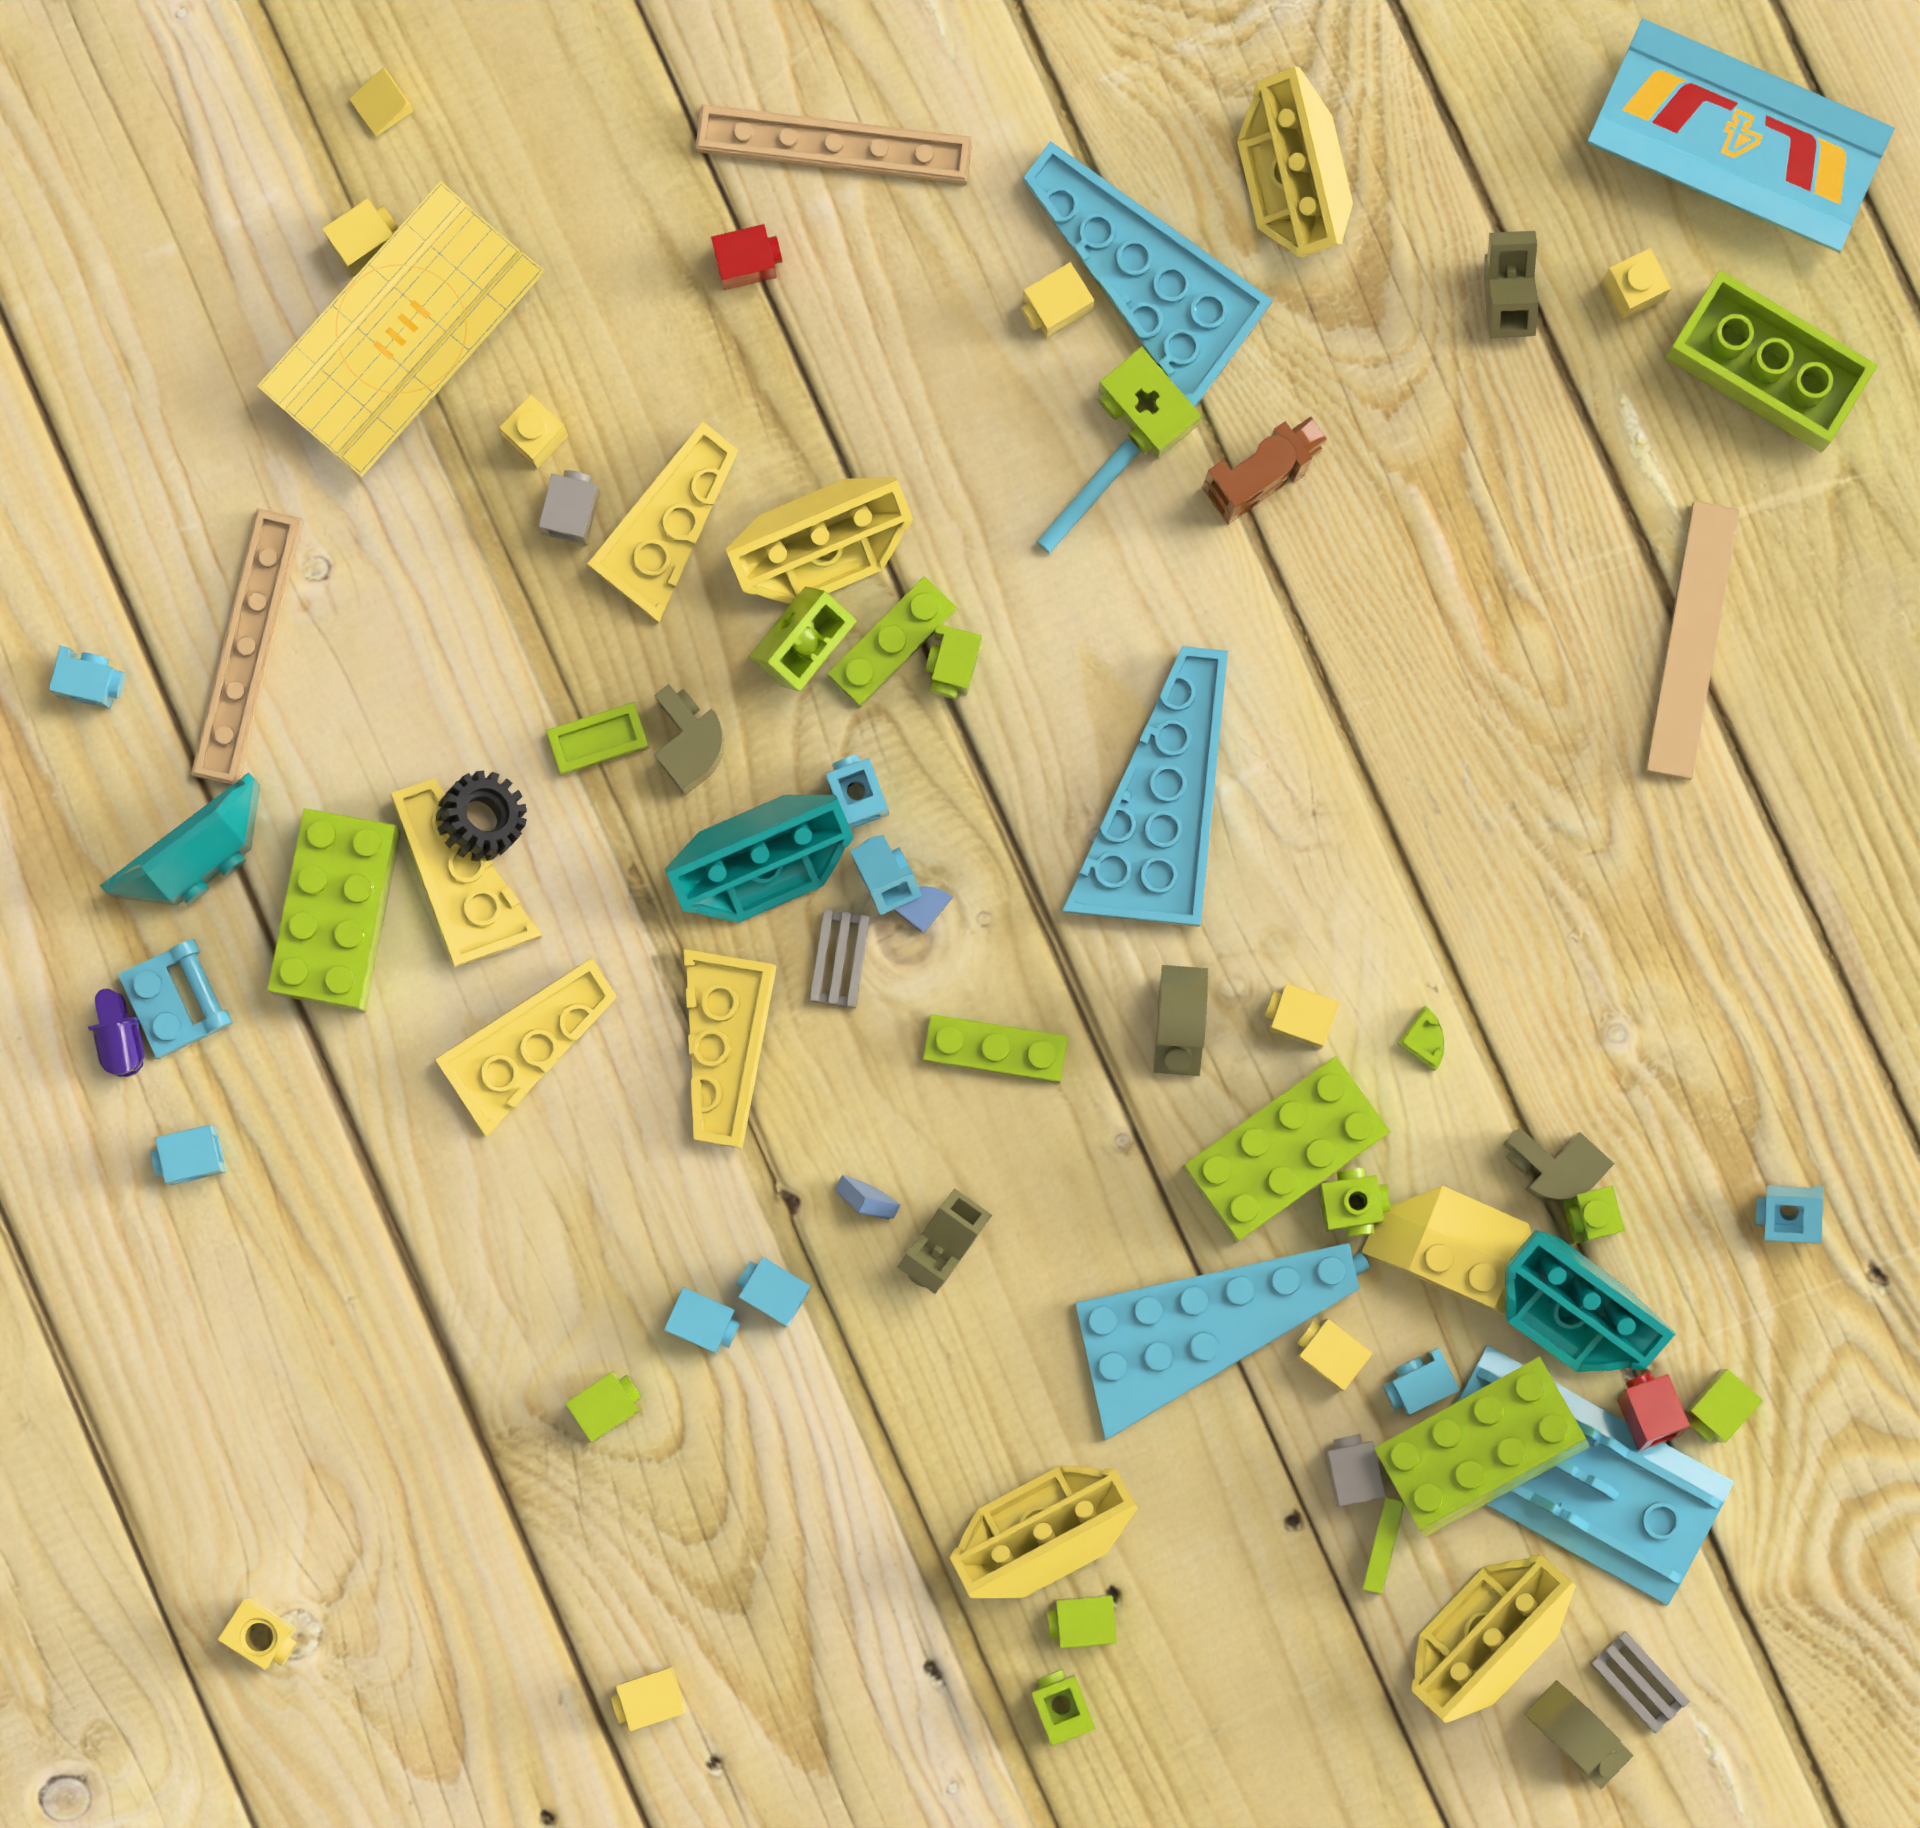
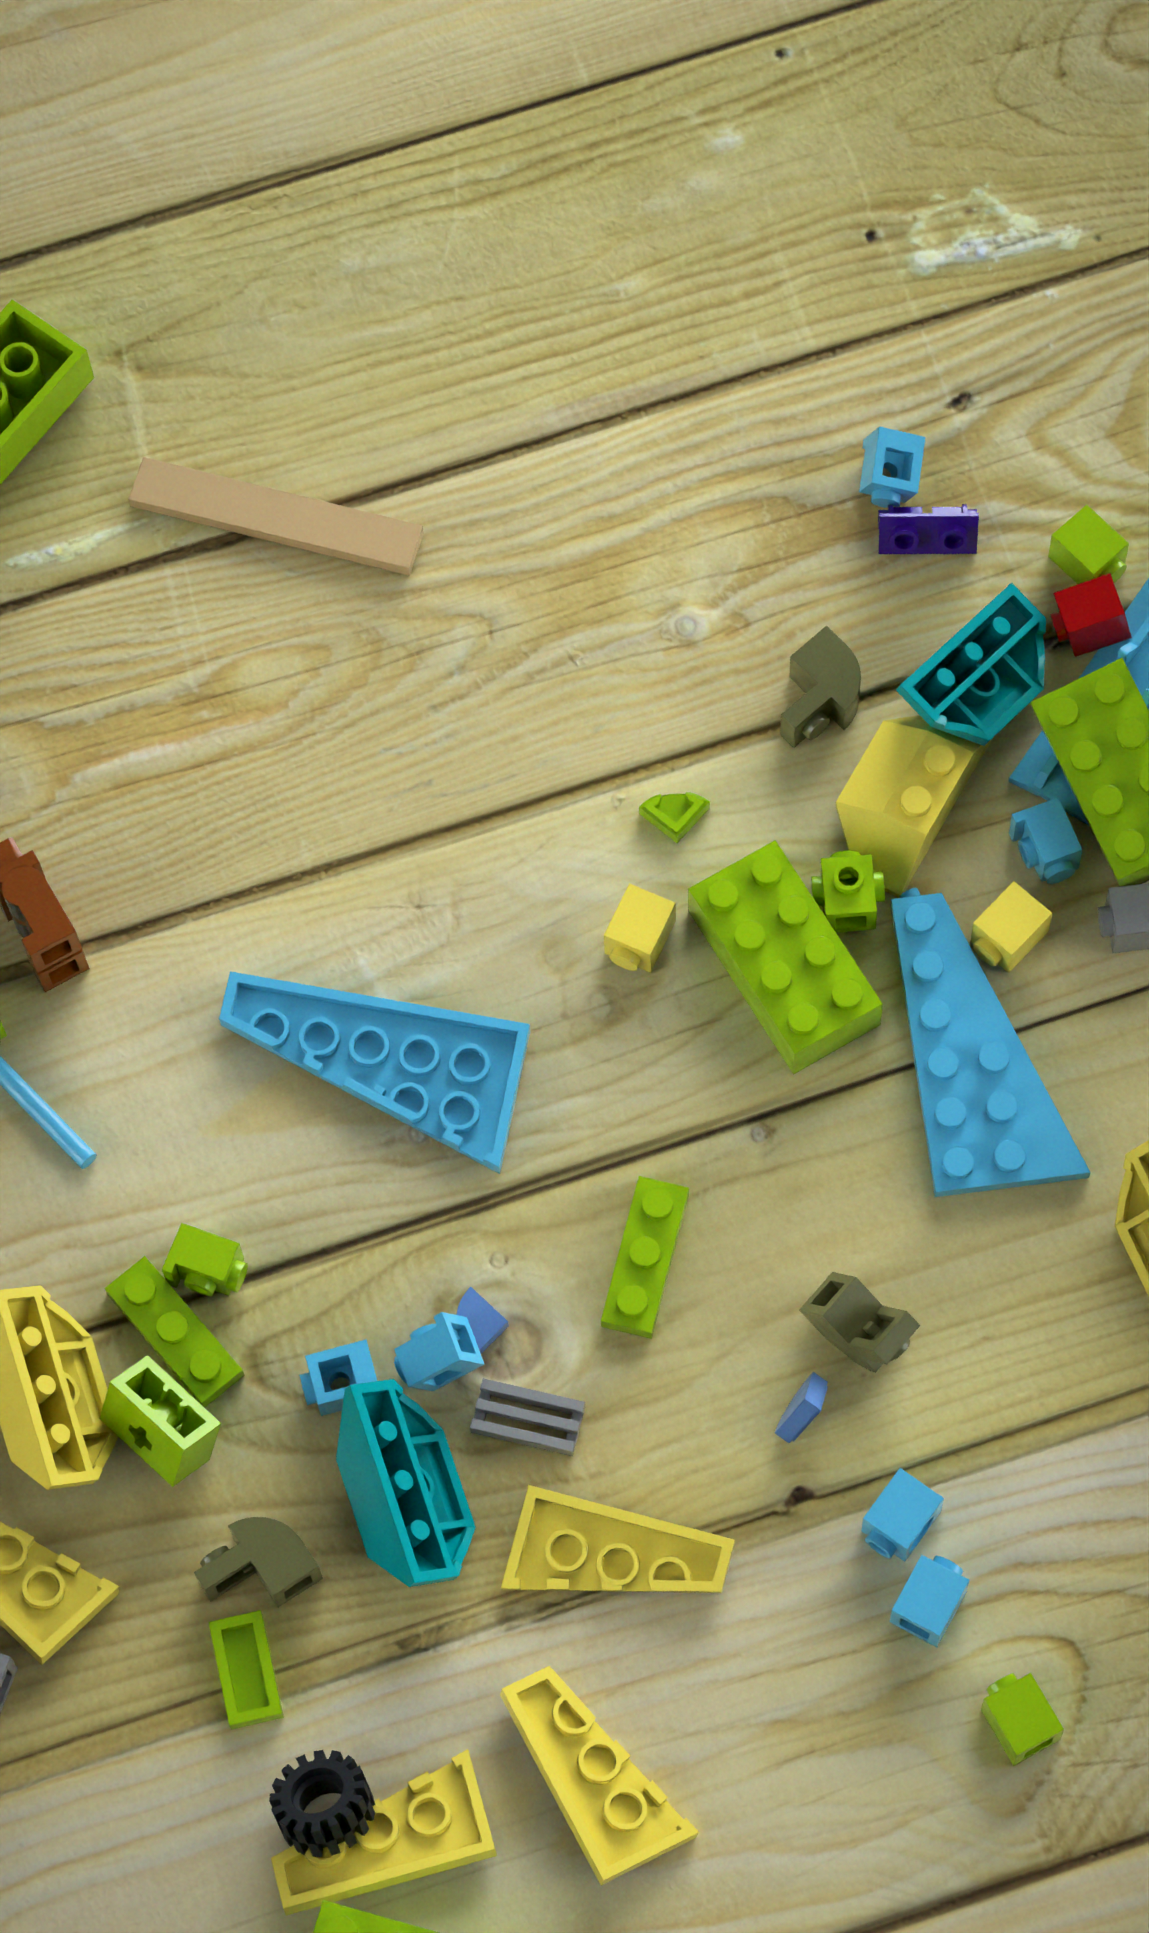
camera: 80 degrees left, 15 degrees down
(1181, 1020) = (632, 1046): olive brick -> none
(1593, 1215) = (880, 654): lime brick -> none
(1729, 1232) = (940, 532): none -> dark purple hinge

